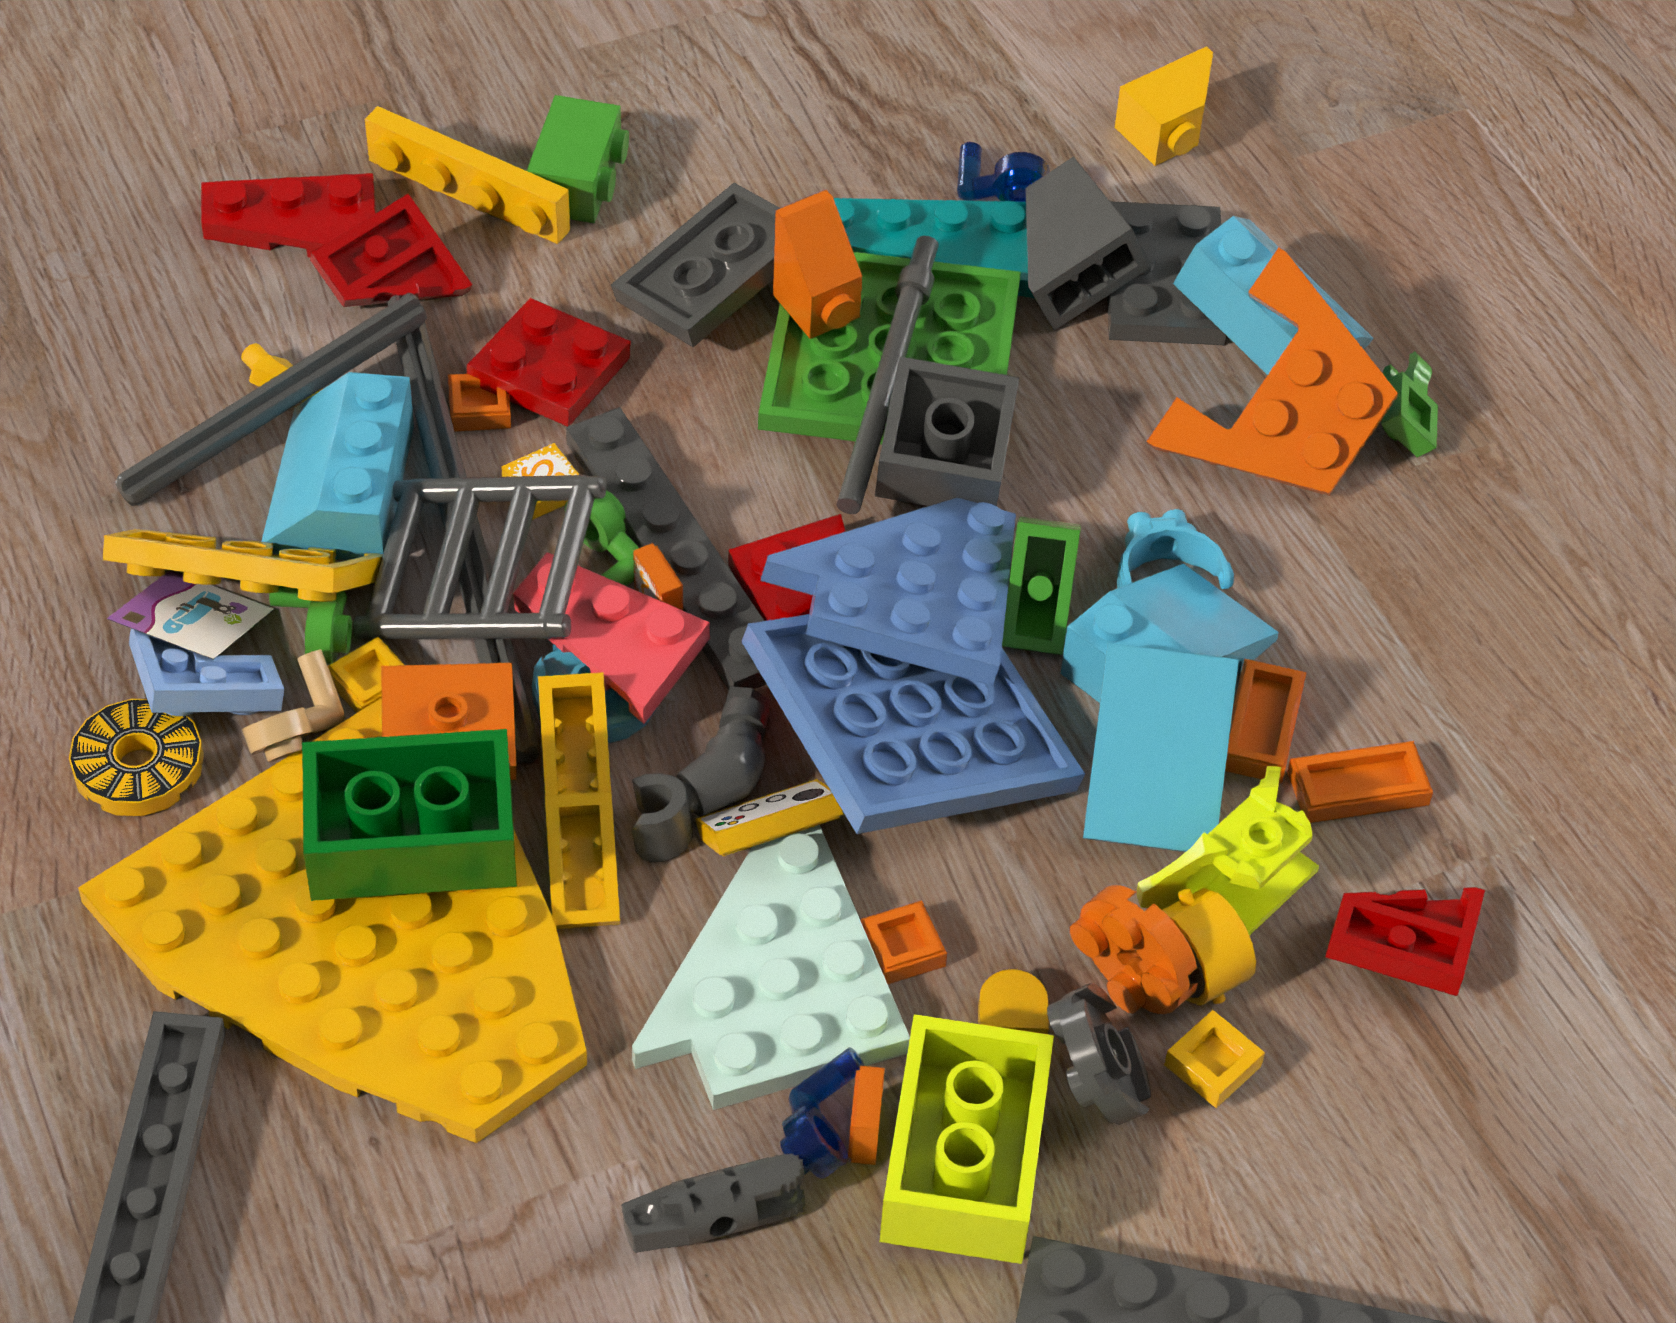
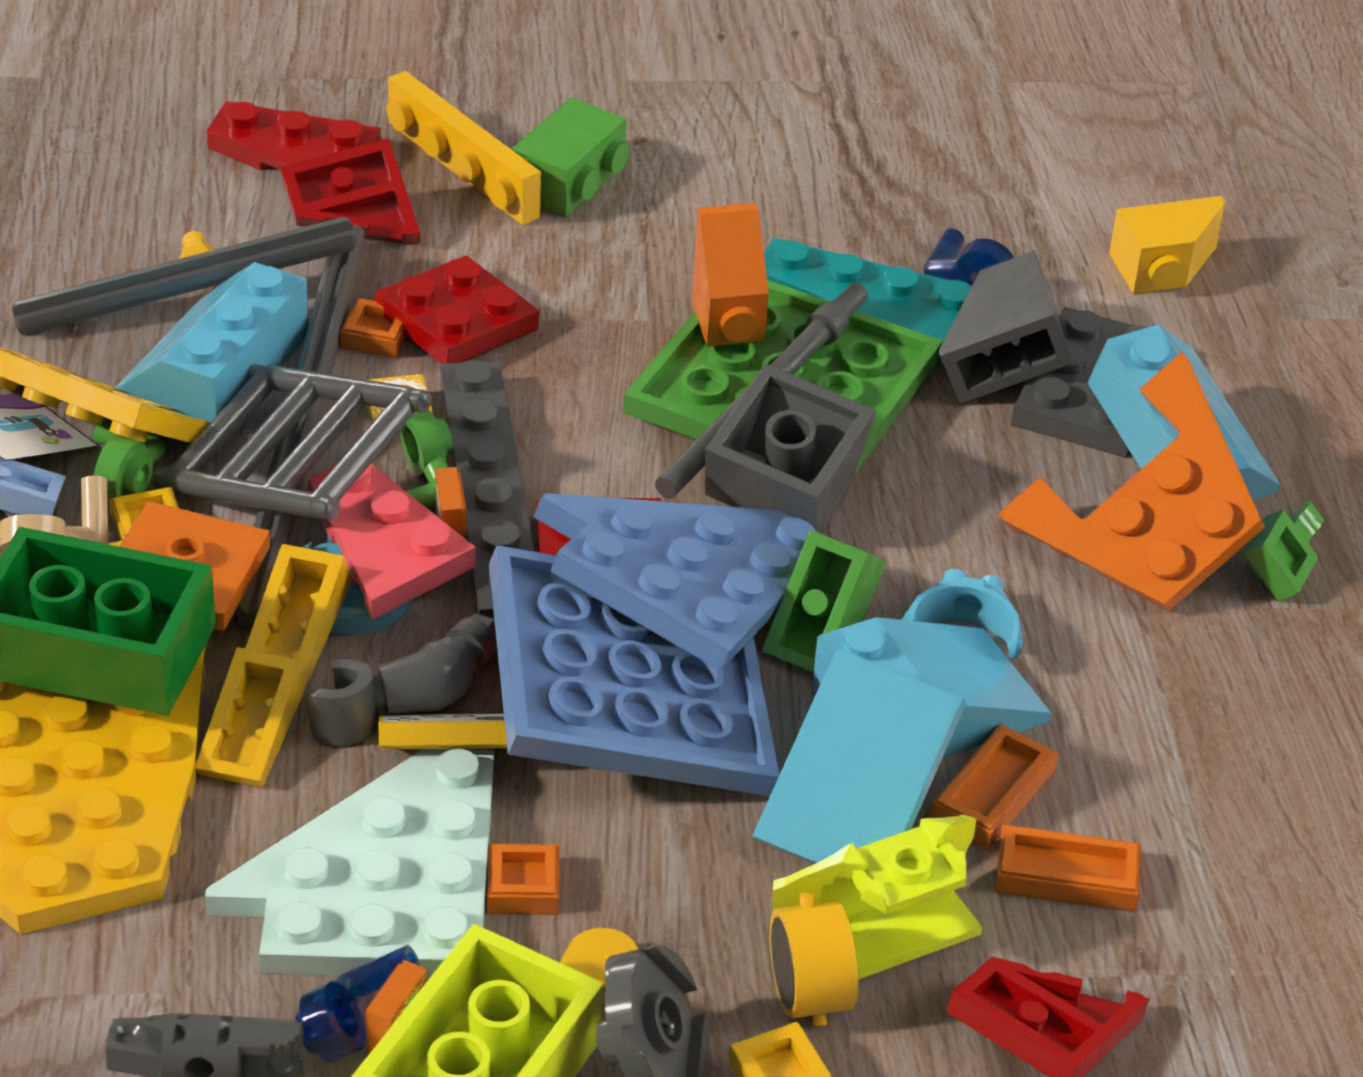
camera: 20 degrees right, 10 degrees down
(704, 267) = (629, 269): dark grey plate -> none
(1135, 951) = (738, 940): orange plate -> none

